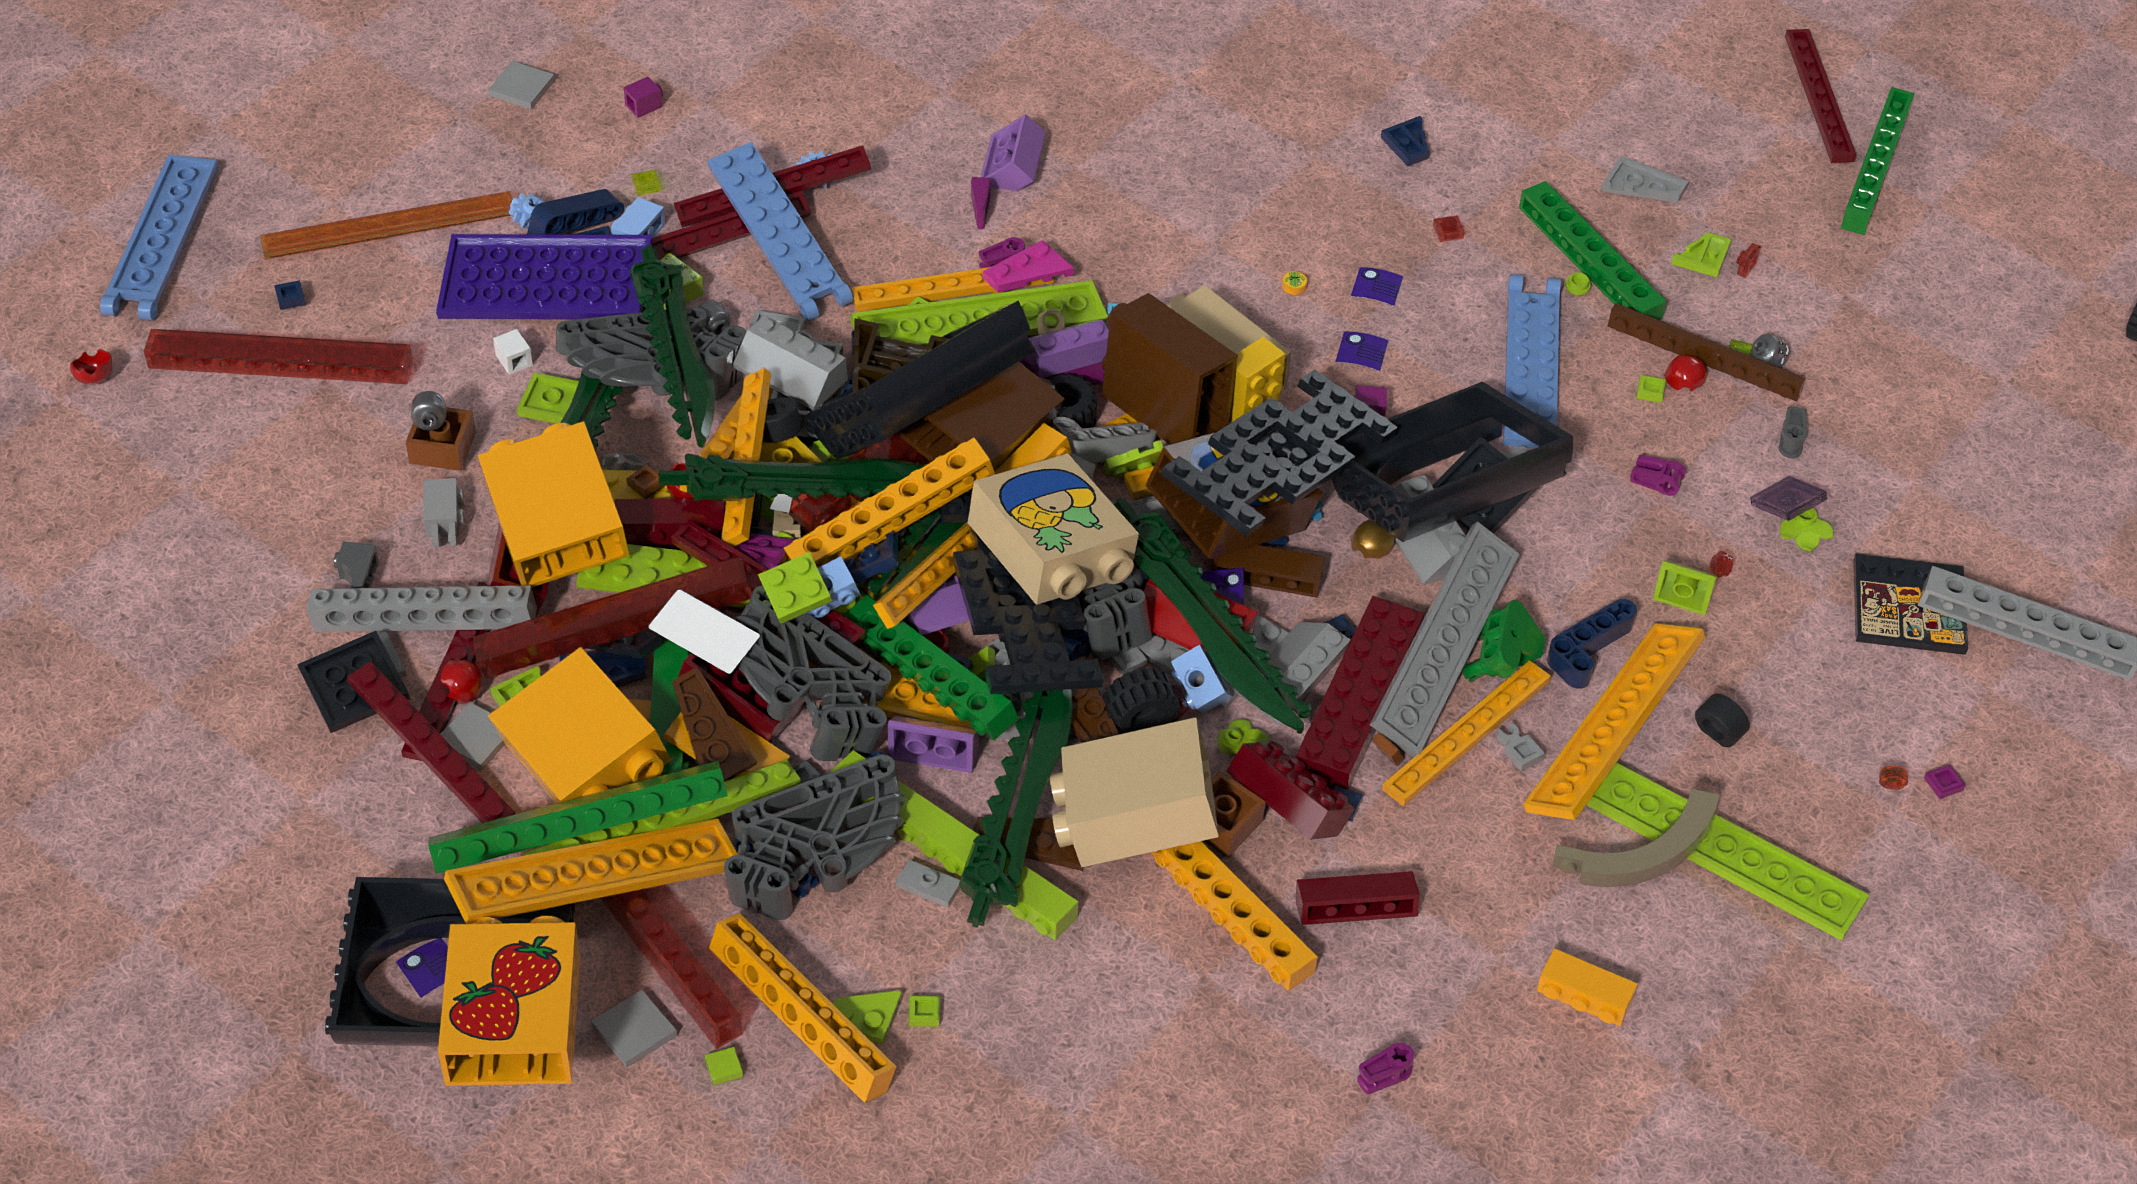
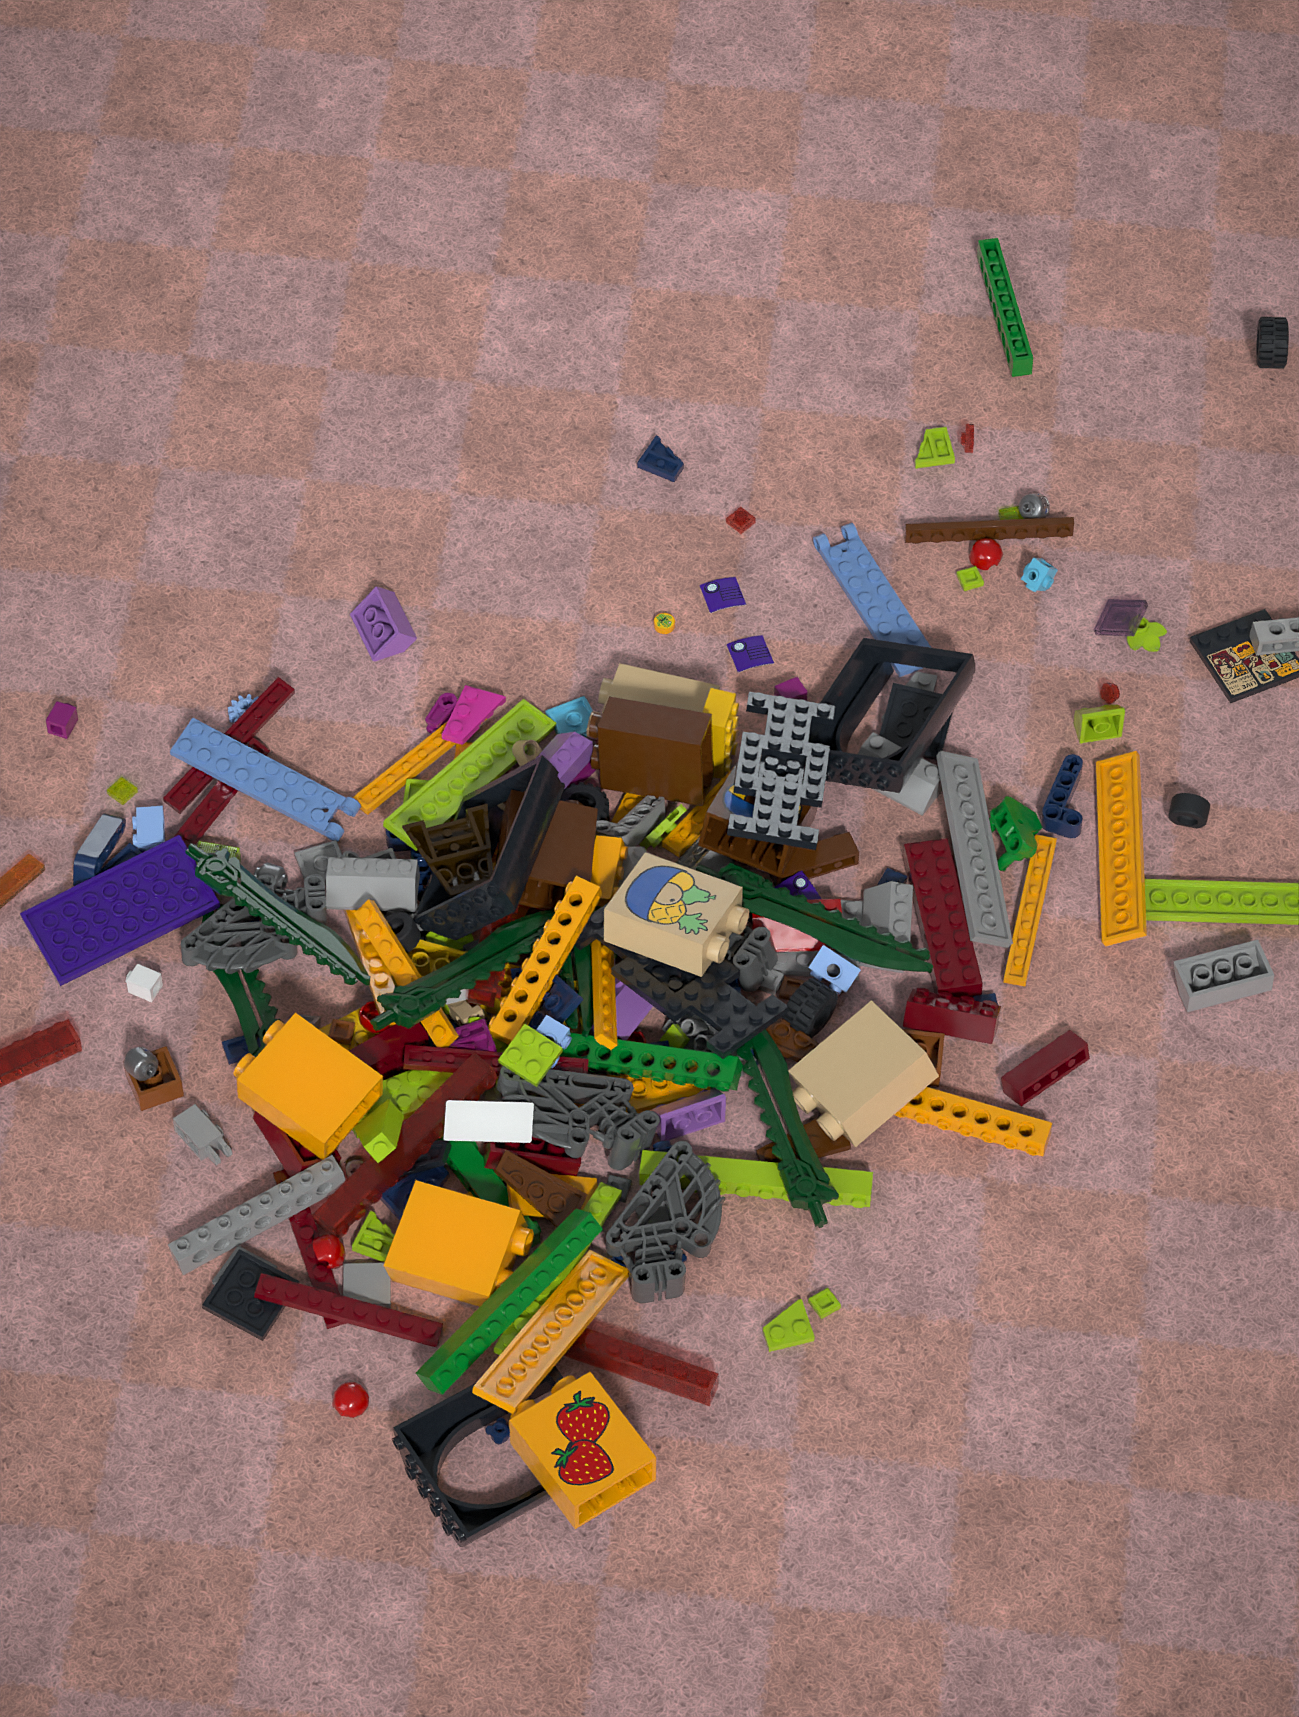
camera: 30 degrees left, 5 degrees up
(357, 563) = (176, 1210): dark grey arch -> none
(360, 835) = (350, 1399): none -> red hair
(425, 966) = (474, 1461): dark purple sticker -> none
(522, 208) = (58, 862): light blue gear -> none
(547, 398) = (203, 1005): lime plate -> none
(593, 585) = (380, 1130): none -> lime slope
(634, 1028) = (650, 1420): light grey tile -> none
(723, 1066) = (725, 1414): lime tile -> none
(802, 1007) = (749, 1345): light orange brick -> none
(928, 883) = (759, 1215): light grey plate -> none
(980, 198) = (385, 670): magenta slope -> none
(1236, 734) = (889, 996): lime plate -> none
(1372, 540) = (865, 801): pearl gold hair -> none
(1386, 1068) = (1144, 1173): magenta piece -> none
(1388, 748) = (989, 951): dark orange tile -> none
(1518, 749) = (1073, 903): light grey plate -> none
(1578, 284) = (863, 519): lime plate -> none
(1587, 987) = (1229, 1047): light orange brick -> none
(1590, 251) = (855, 488): green brick -> none
(1634, 907) = (1223, 975): none -> light grey slope
(1643, 181) = (851, 409): light grey wing -> none
(1649, 860) = (1224, 899): dark tan arch -> none
(1657, 474) = (1021, 645): magenta piece -> none
(1726, 415) = (1039, 575): none -> medium azure brick
(1793, 432) = (1089, 563): dark grey piece -> none
(1820, 96) = (926, 269): dark red plate -> none

